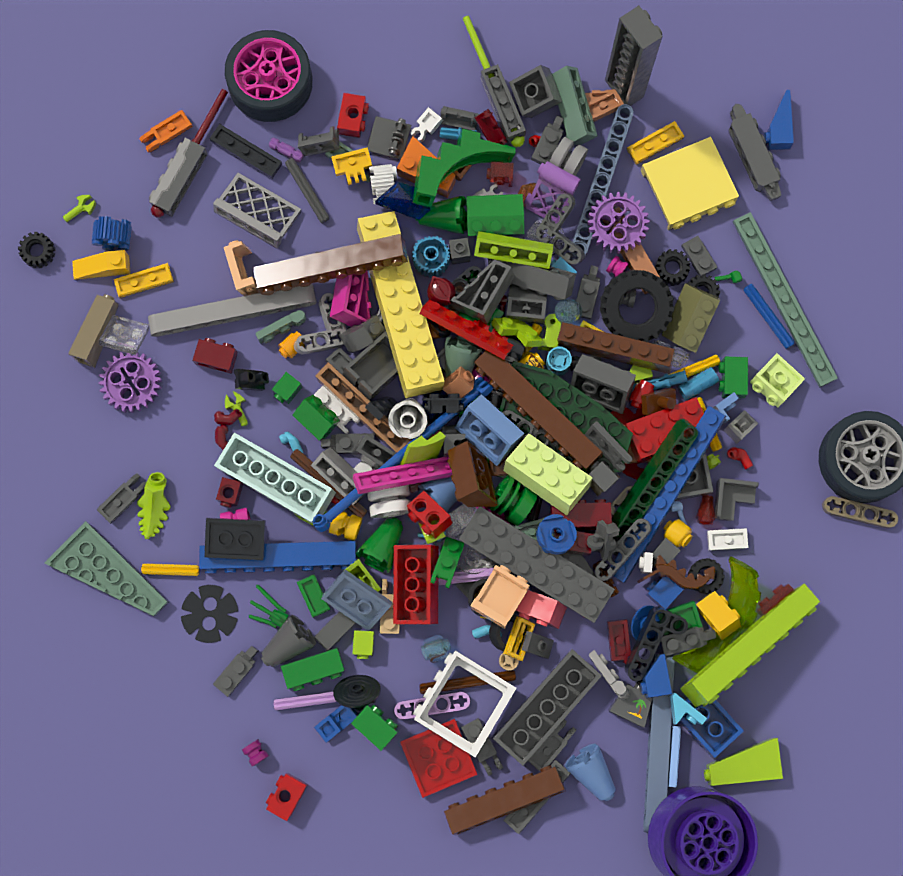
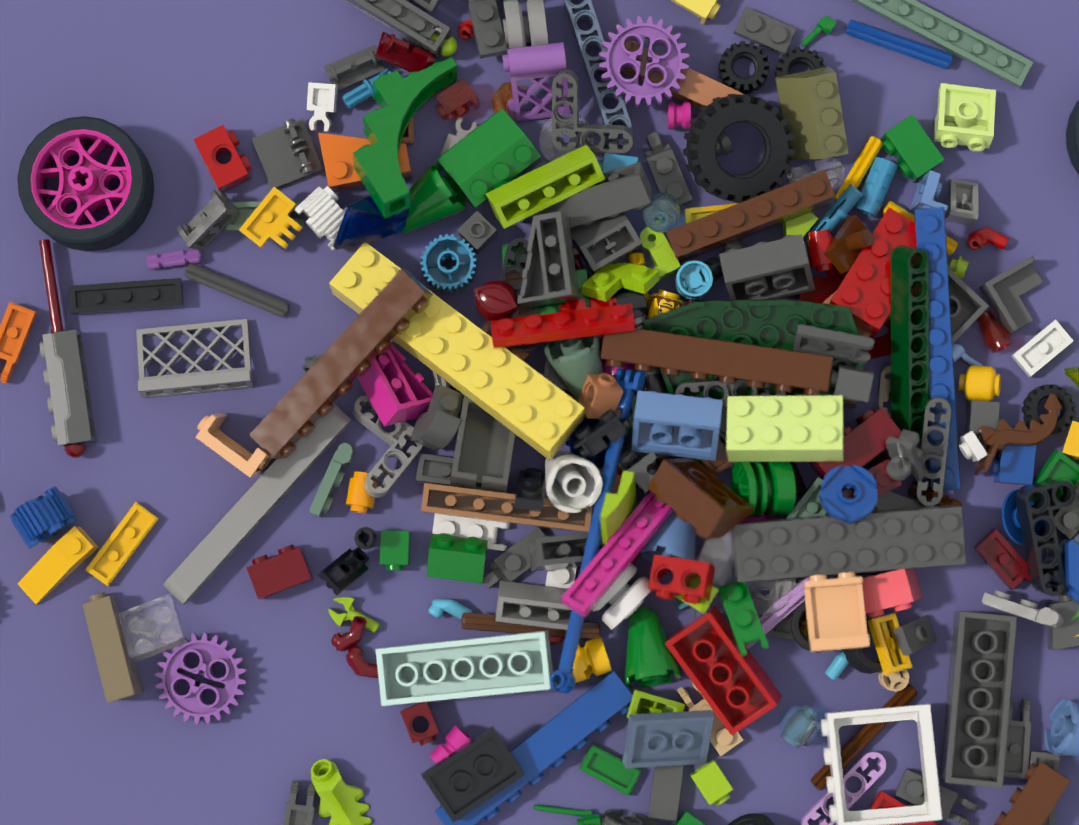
camera: 35 degrees left, 5 degrees up
(274, 369) = (372, 538): none -> black pin

